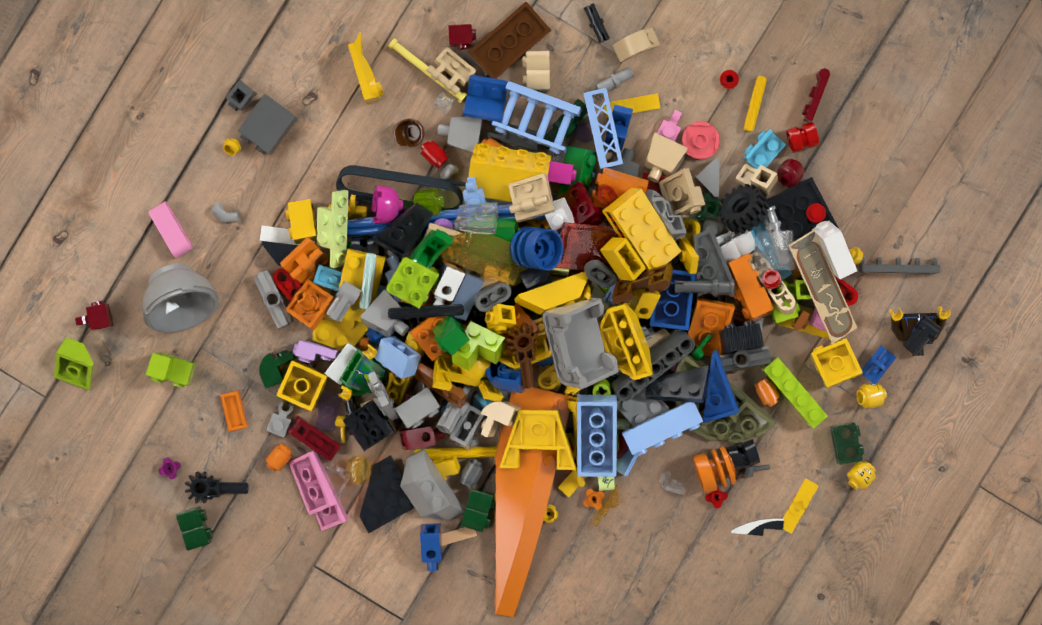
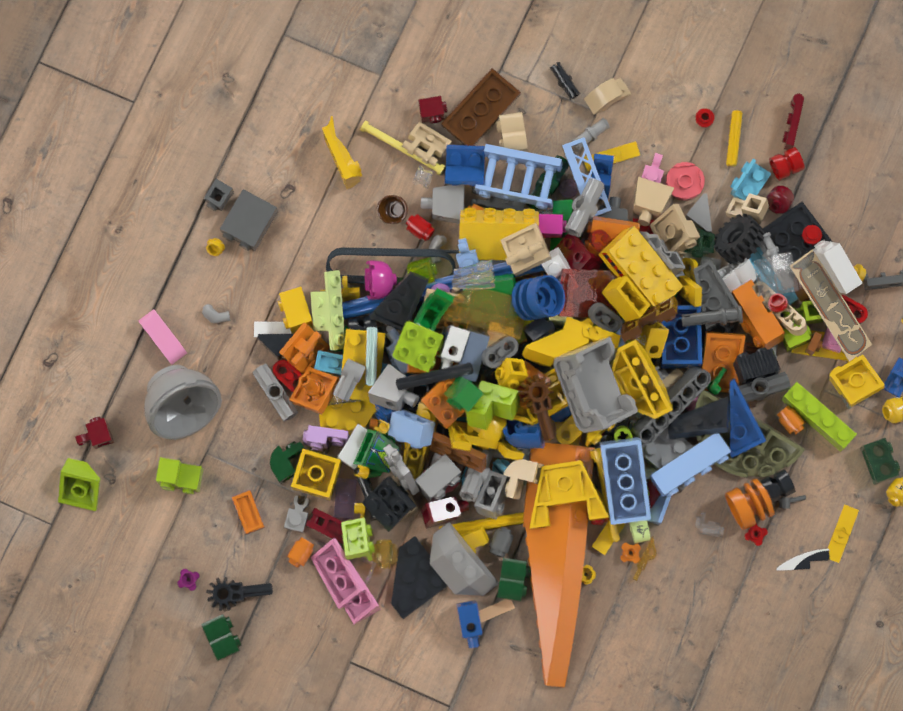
camera: 10 degrees left, 10 degrees down
(334, 454) = (357, 539): none -> lime bracket
(589, 289) = (584, 330): none -> yellow piece
(596, 160) = (584, 207): none -> light grey piece

